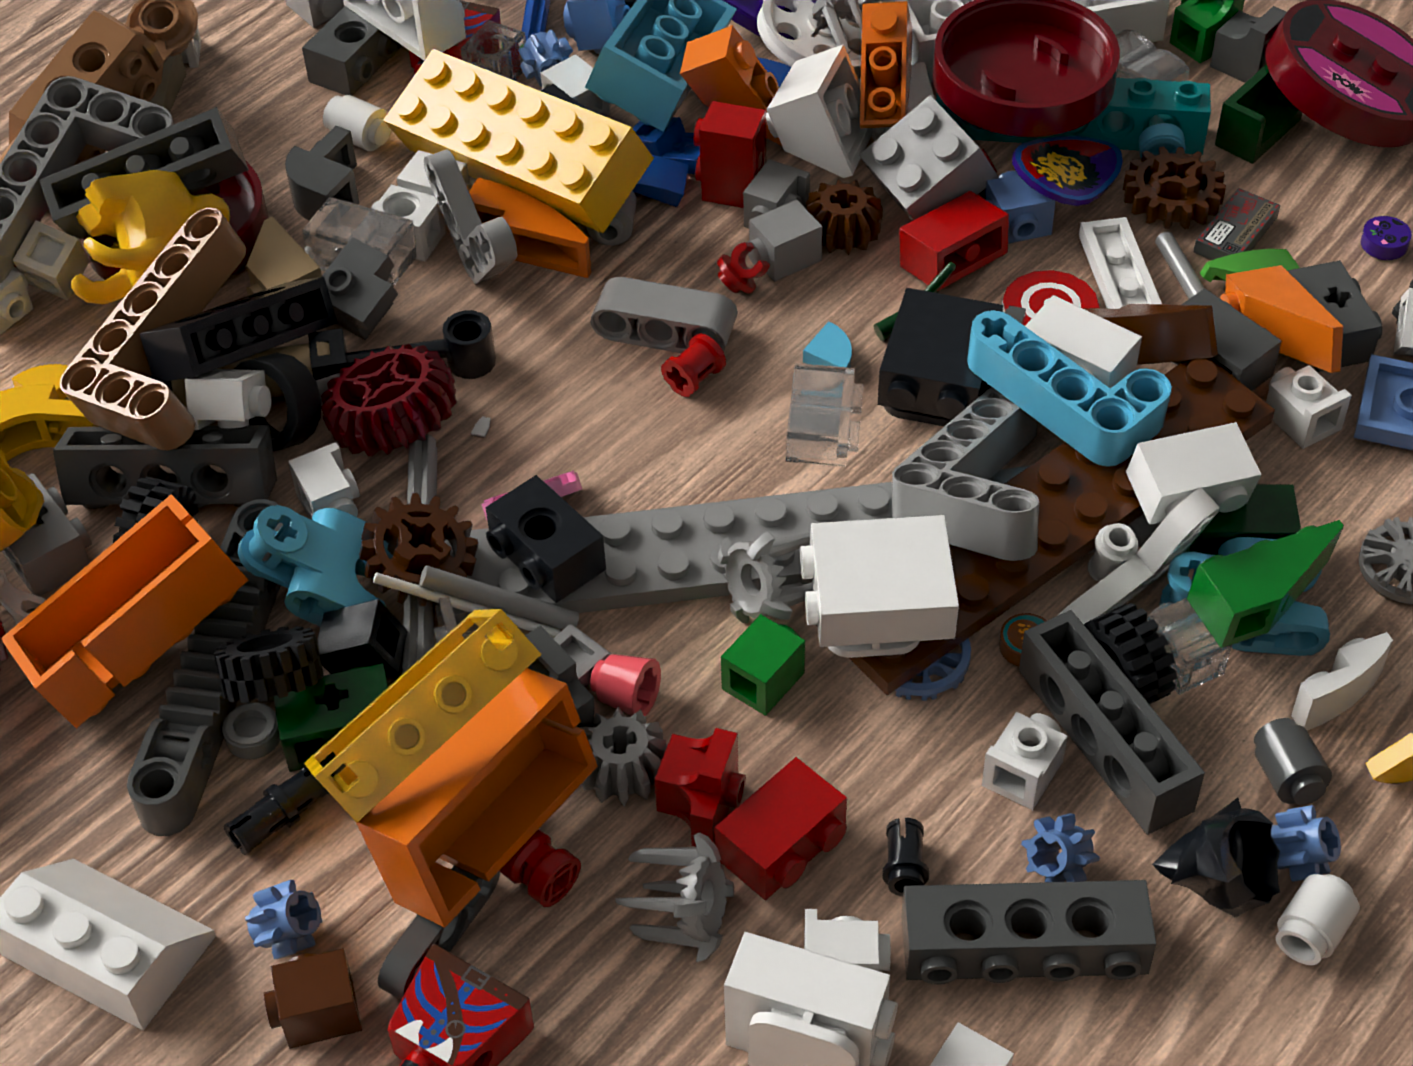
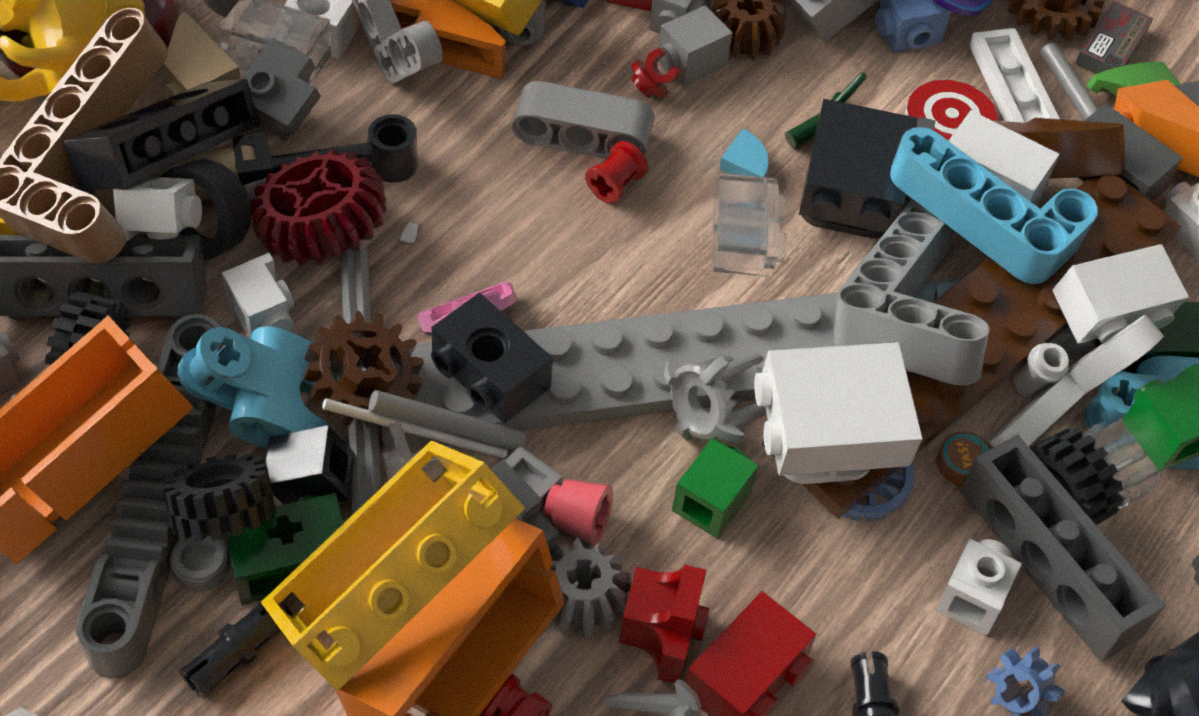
camera: 10 degrees left, 5 degrees up
(960, 232) = (857, 42): red brick -> none

